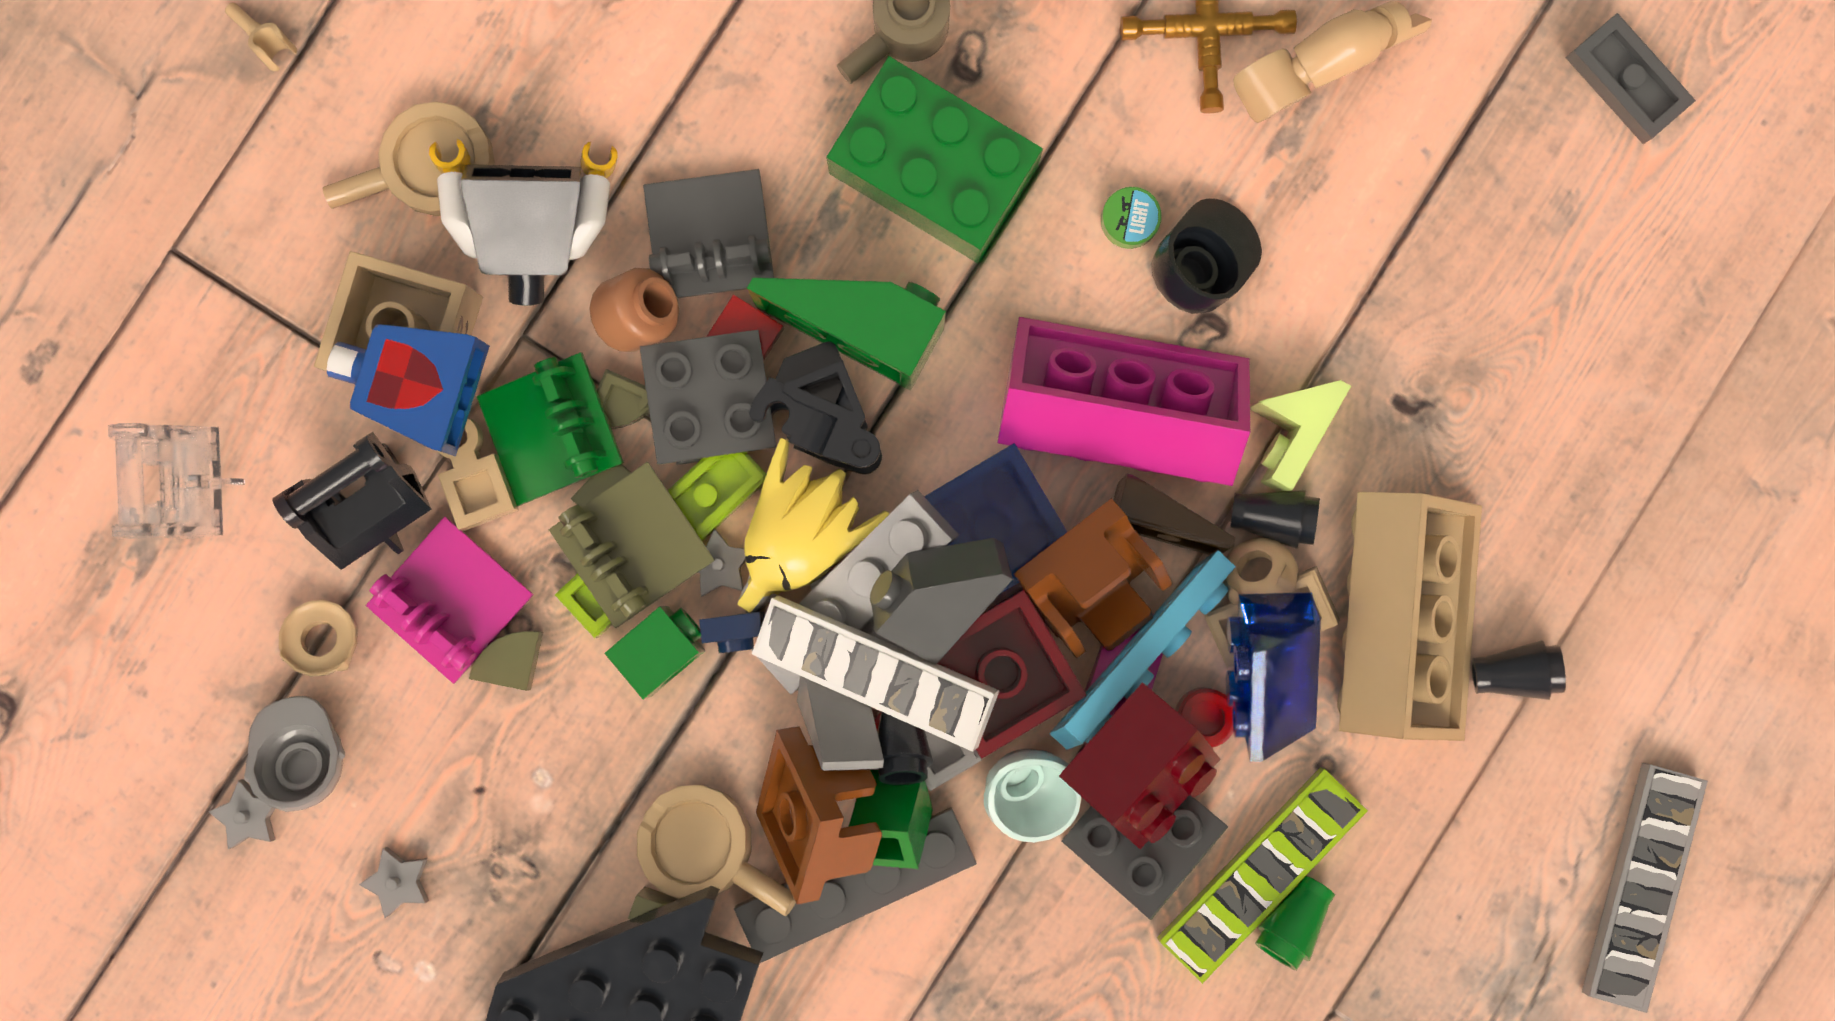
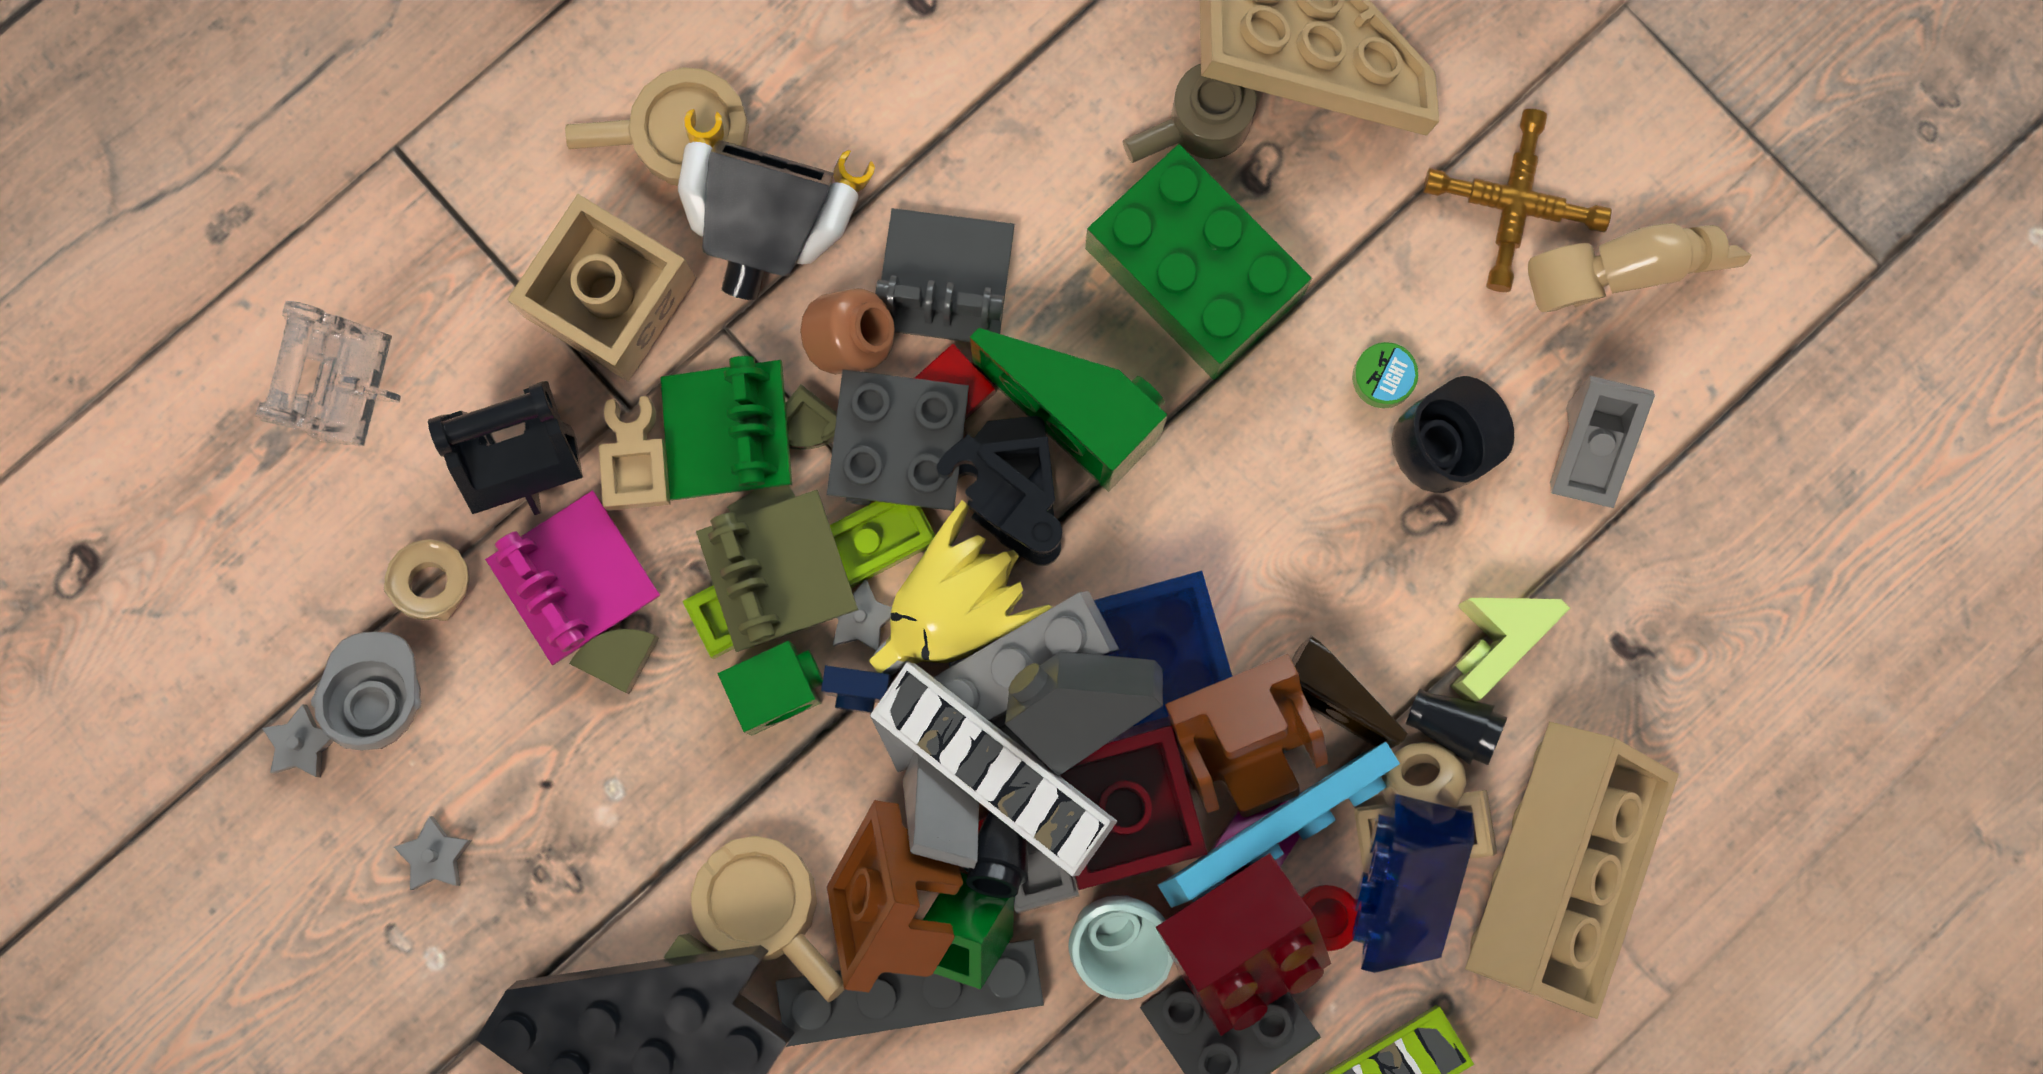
camera: 20 degrees right, 5 degrees down
(413, 381) = (605, 340): blue torso -> none
(1126, 401) = (1331, 563): dark pink slope -> none
(1340, 225) = (1600, 440): none -> light grey slope
(1521, 671) = (1676, 960): black cone -> none
(1630, 79) = (1945, 370): dark grey plate -> none

